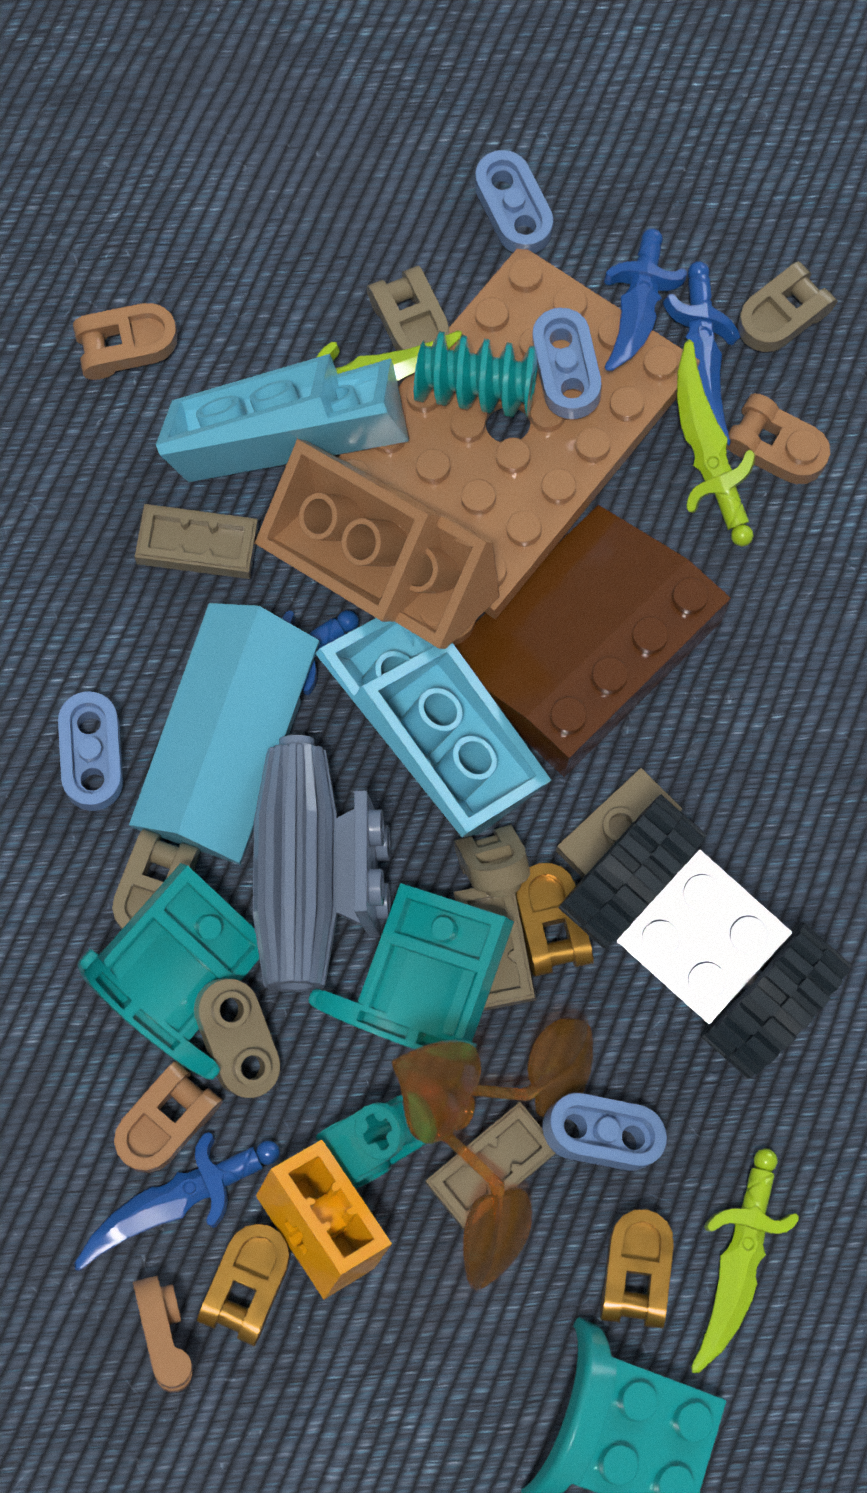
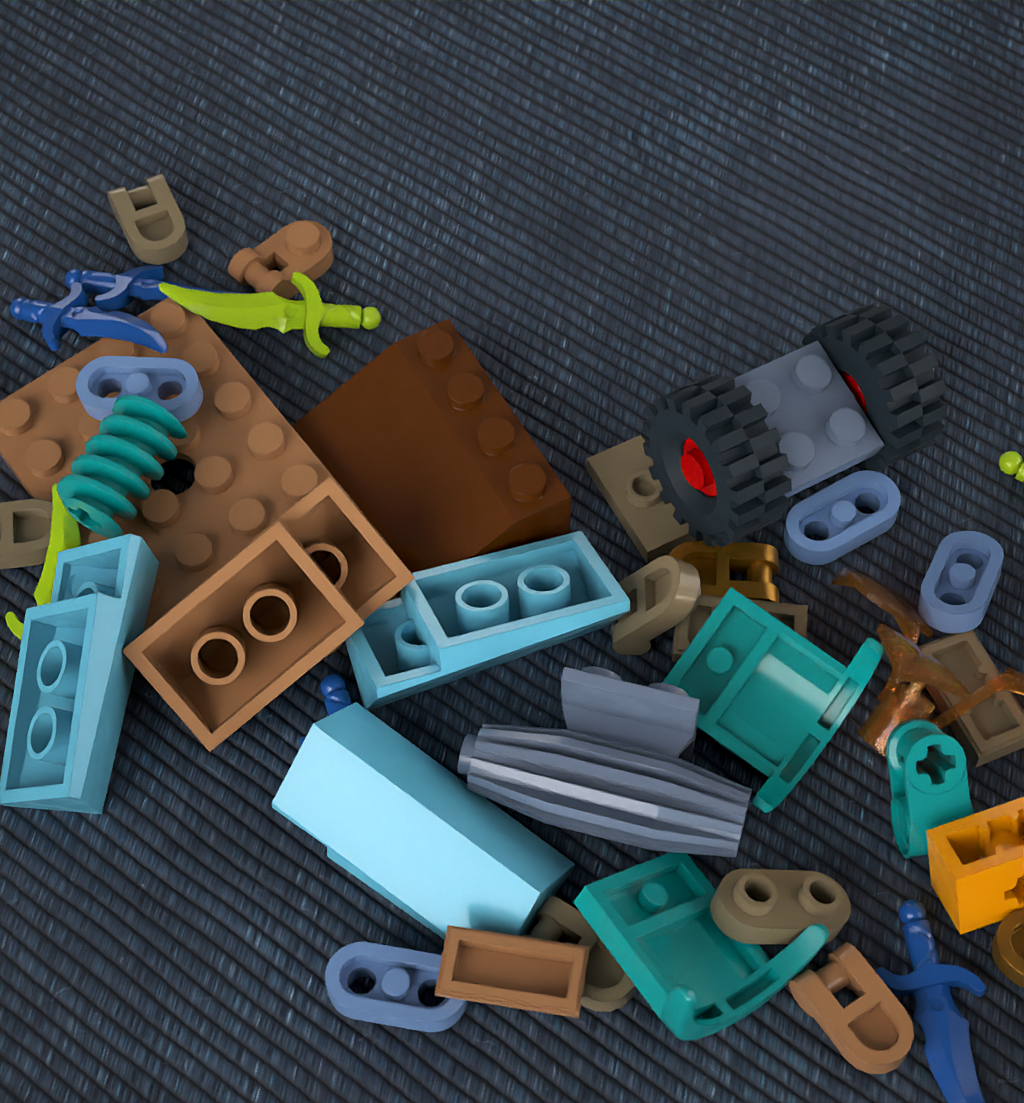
camera: 70 degrees left, 15 degrees down
(112, 832) = (512, 971): none -> medium nougat tile
(196, 541) = (183, 813): dark tan plate -> none
(650, 1009) = (837, 520): none -> medium blue plate

